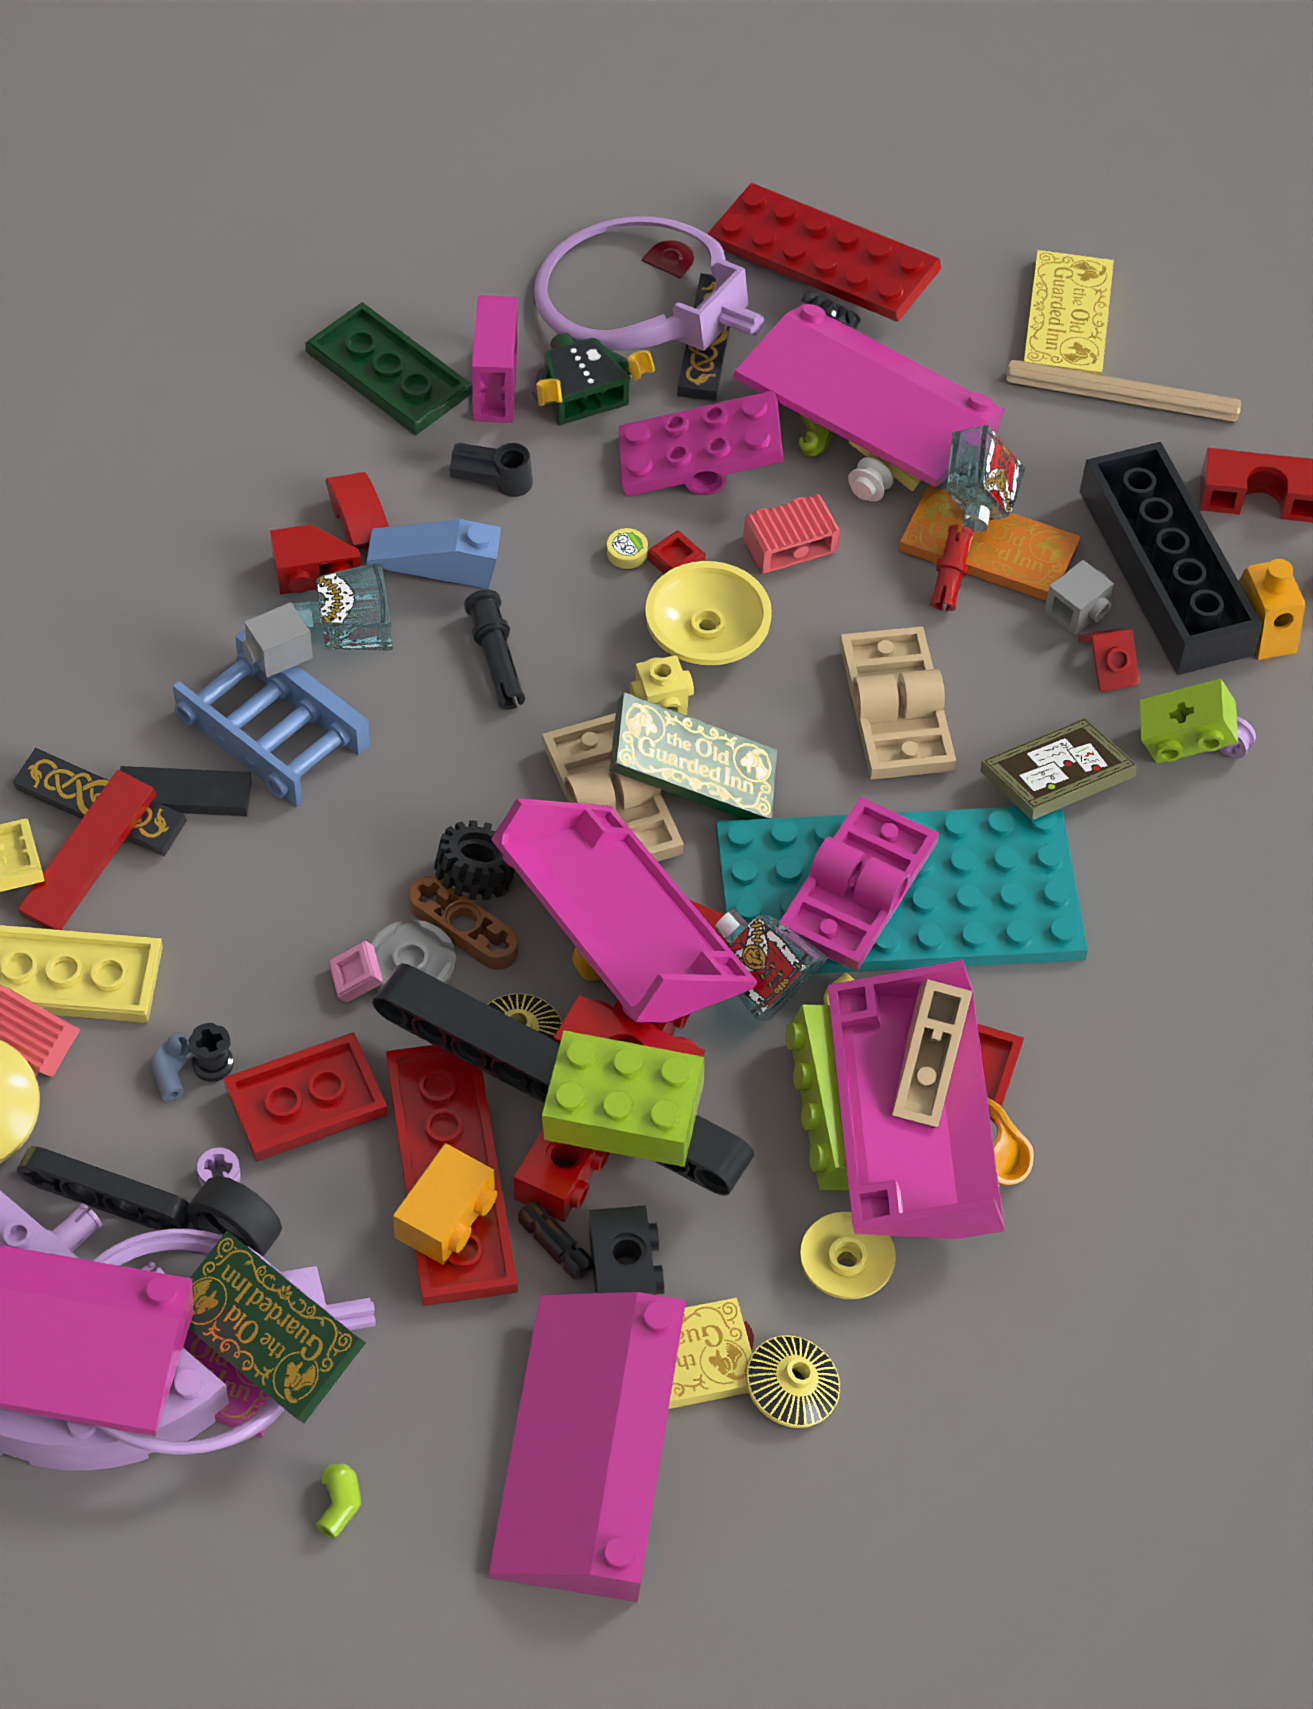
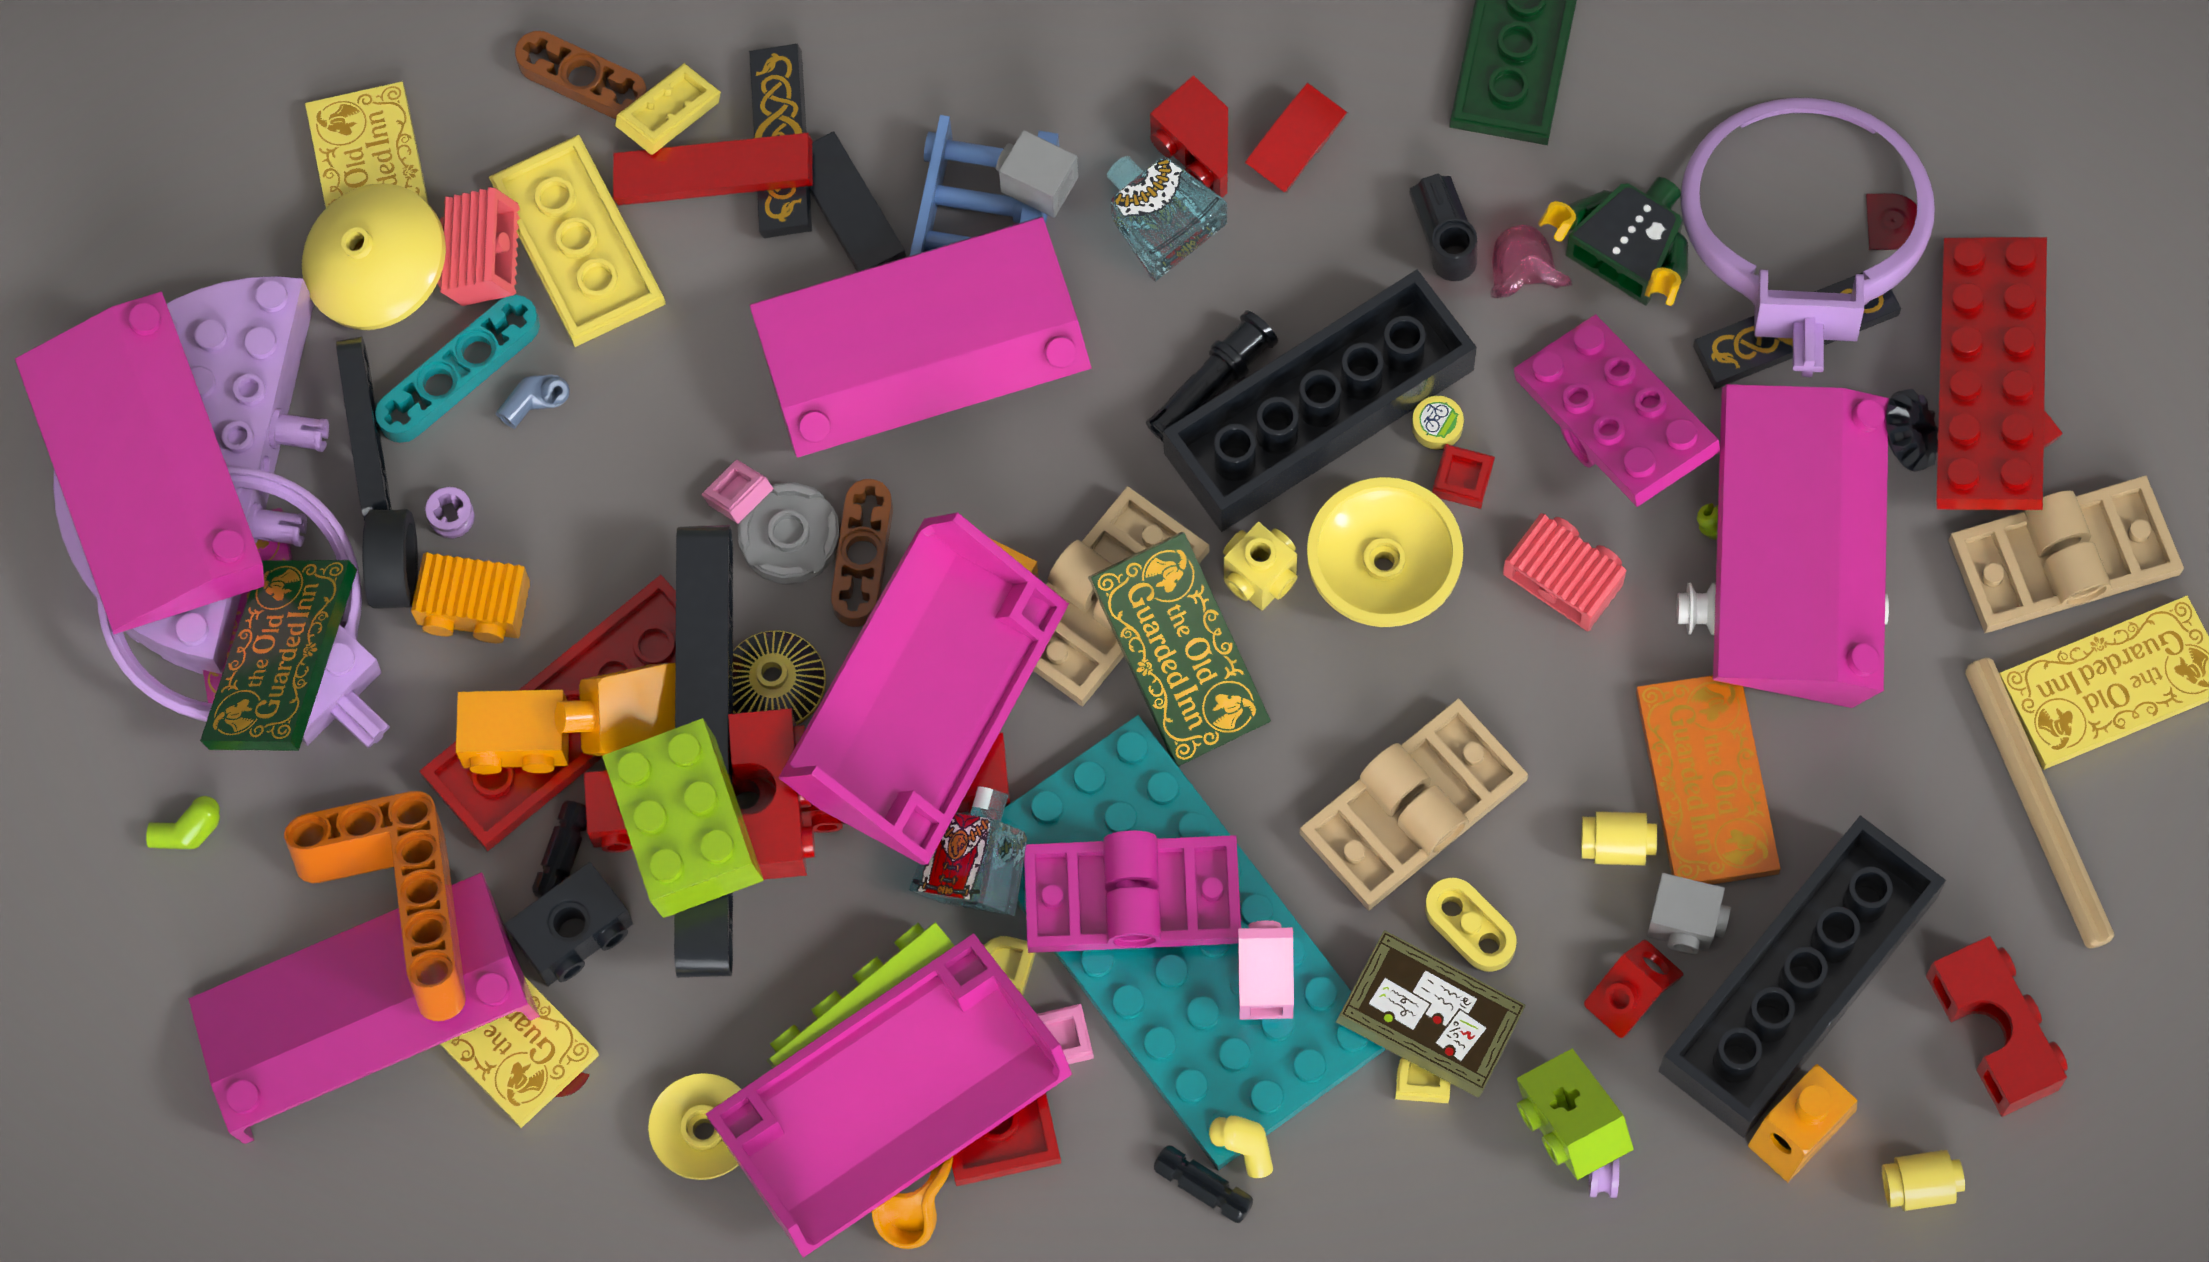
camera: 65 degrees right, 15 degrees up
(103, 1104) = (451, 361): none -> teal beam
(211, 1052) = (564, 436): black bush -> none
(305, 1096) = (572, 535): red plate -> none
(307, 1186) = (470, 597): none -> light orange brick
(336, 787) = (920, 336): none -> dark pink slope
(439, 550) = (1287, 244): medium blue slope -> none
(470, 876) = (922, 489): black tyre -> none
(493, 1115) = (620, 708): none -> light orange torso
(495, 358) = (1579, 138): dark pink window -> none
(519, 1328) = (405, 835): none -> orange beam
(549, 442) = (1523, 258): none -> clear pink piece
(568, 594) = (1319, 400): none -> black brick
(782, 1395) = (570, 1160): dish -> none
(930, 1052) = (951, 1073): tan slope -> none
(952, 568) = (1629, 759): red pin -> none
(968, 292) = (2065, 553): none -> tan plate
(978, 826) = (1265, 971): none -> slope
(983, 476) = (1753, 723): clear light blue torso -> none
(1001, 606) = (1618, 838): none -> light yellow brick
(1004, 716) = (1473, 924): none -> light yellow plate
(1086, 917) = (1244, 1138): none -> light yellow arm
(1093, 968) = (1203, 1184): none -> black axle
(1098, 807) = (1420, 1085): none -> light yellow tile

